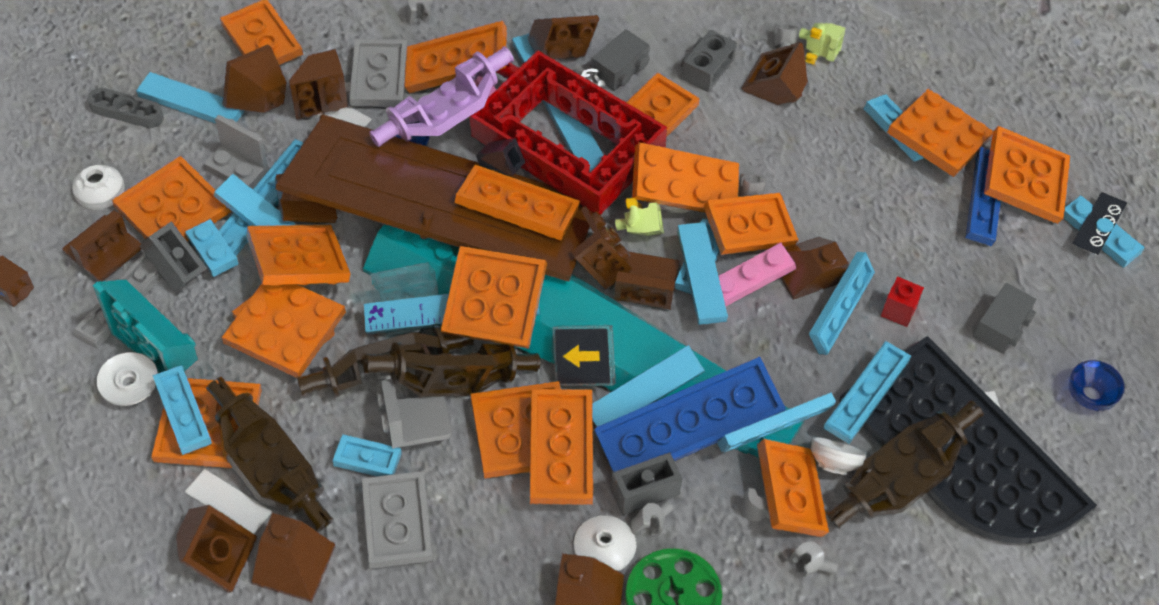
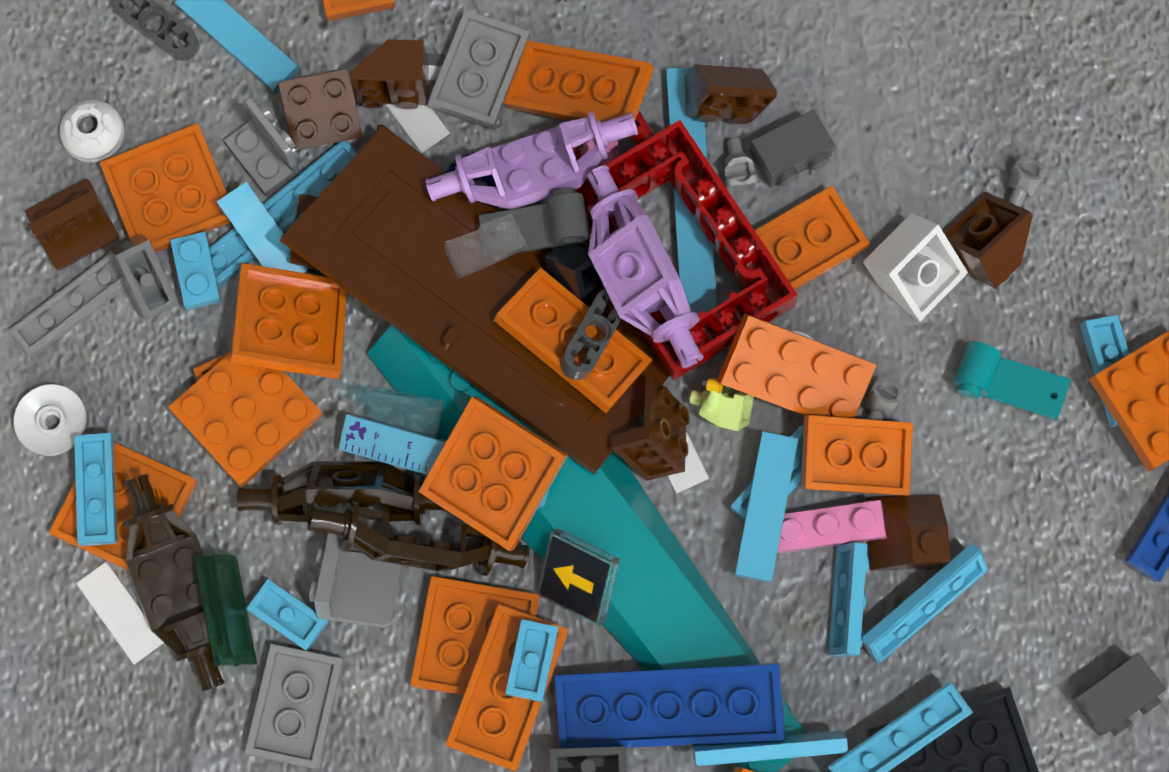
camera: 25 degrees right, 20 degrees up
(143, 327) = (87, 367): teal wedge -> none
(214, 545) = (81, 673): reddish brown slope -> none
(254, 82) = (314, 44): reddish brown slope -> none
(273, 117) = (320, 108): none -> reddish brown bracket
(291, 558) = (165, 715): reddish brown slope -> none
(317, 463) = (225, 610): none -> clear green piece
(432, 159) = (485, 246): none -> clear slope
(464, 139) = (550, 224): none -> dark grey door
(534, 197) = (581, 340): none -> dark grey beam
(551, 133) = (638, 268): none -> lavender plate
(574, 414) = (532, 661): none -> medium azure plate
(648, 386) = (635, 646): medium azure tile -> none
(649, 281) = (704, 489): reddish brown bracket -> none
(708, 60) = (912, 191): dark grey brick -> none
(737, 103) = (916, 266): none -> white slope
(787, 317) = (848, 600): none -> medium azure plate
(823, 40) = (1071, 203): yellowish green piece -> none
(832, 156) = (1015, 384): none -> teal door
(902, 301) = (999, 629): red brick -> none

